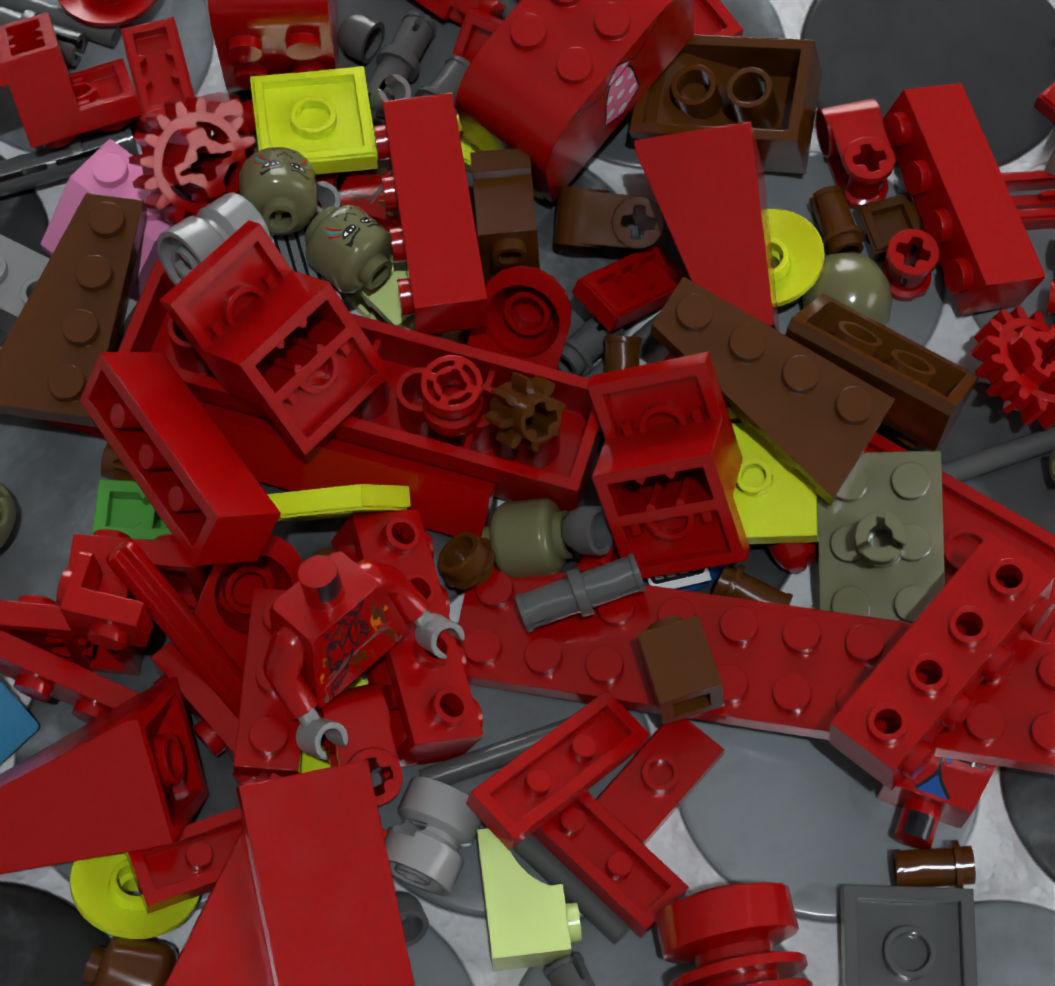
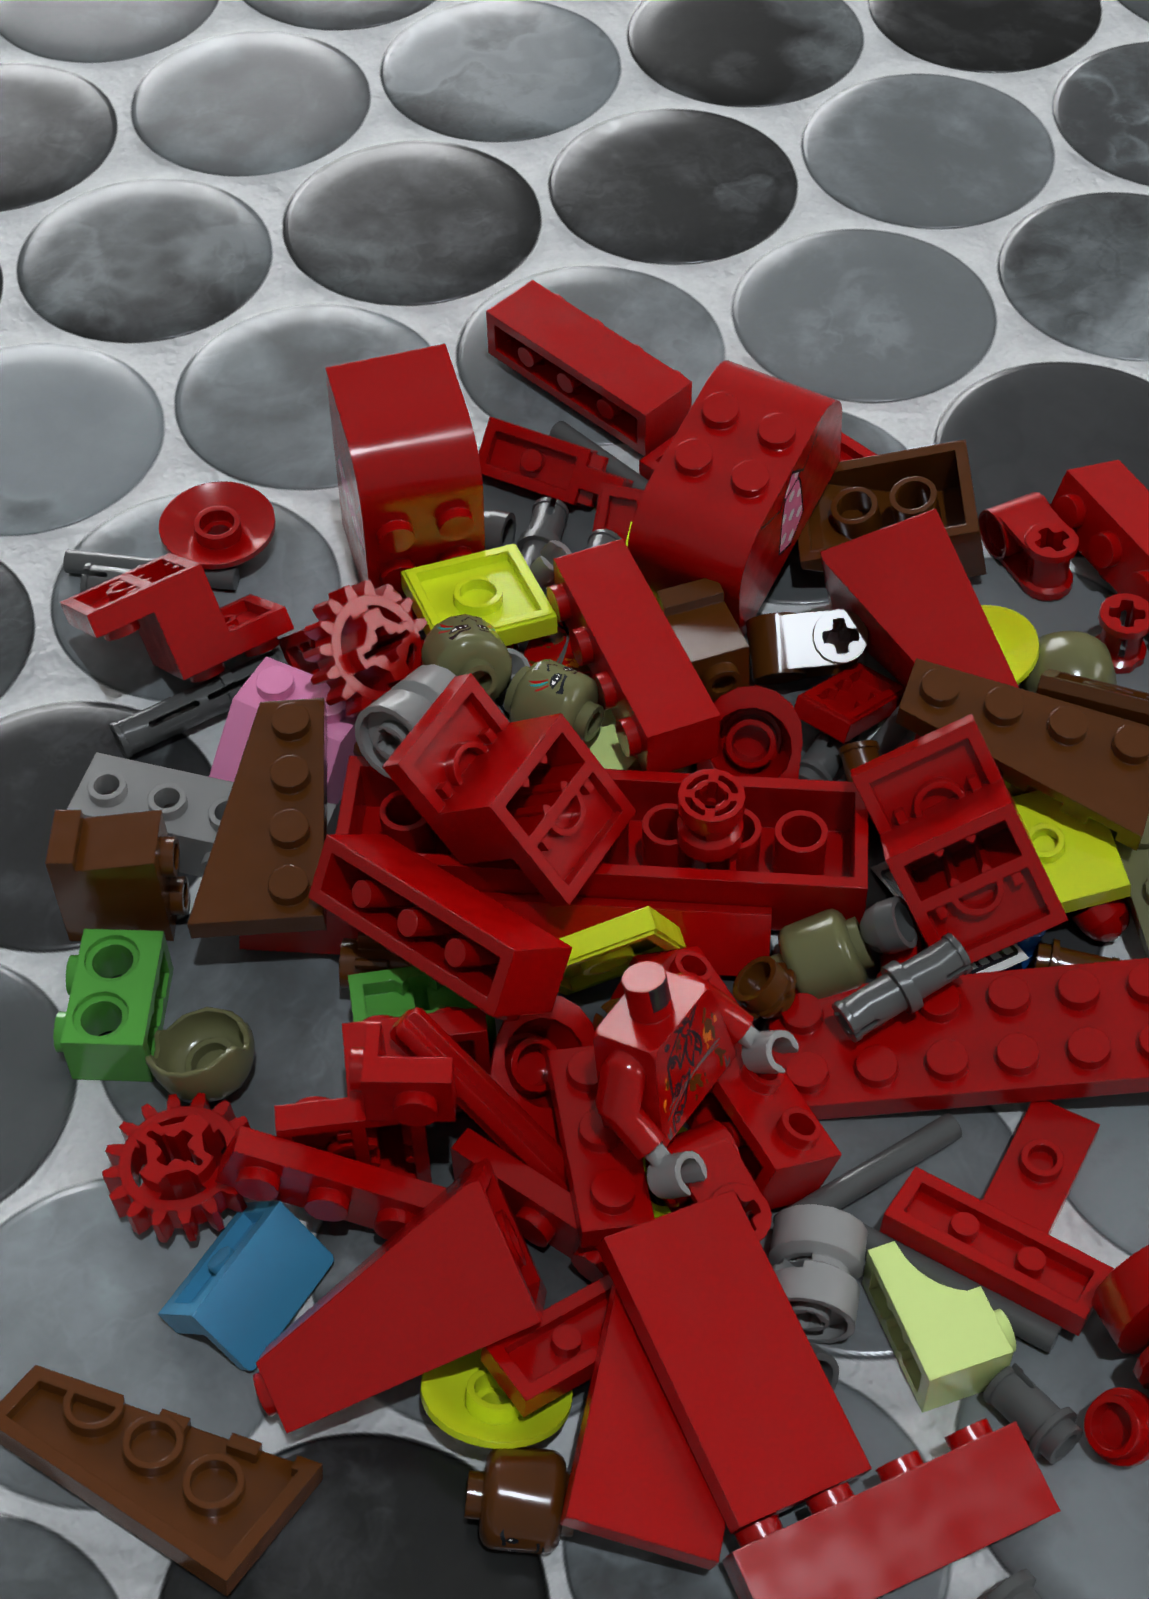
camera: 10 degrees left, 15 degrees down
(157, 63) = (288, 582): red plate -> none
(525, 411) = (794, 814): reddish brown gear -> none
(557, 770) = (934, 1171): red plate -> none
(680, 668) = (1039, 1035): reddish brown brick -> none
(836, 221) = (1034, 606): reddish brown pin -> none
(885, 219) = (1079, 604): reddish brown tile -> none

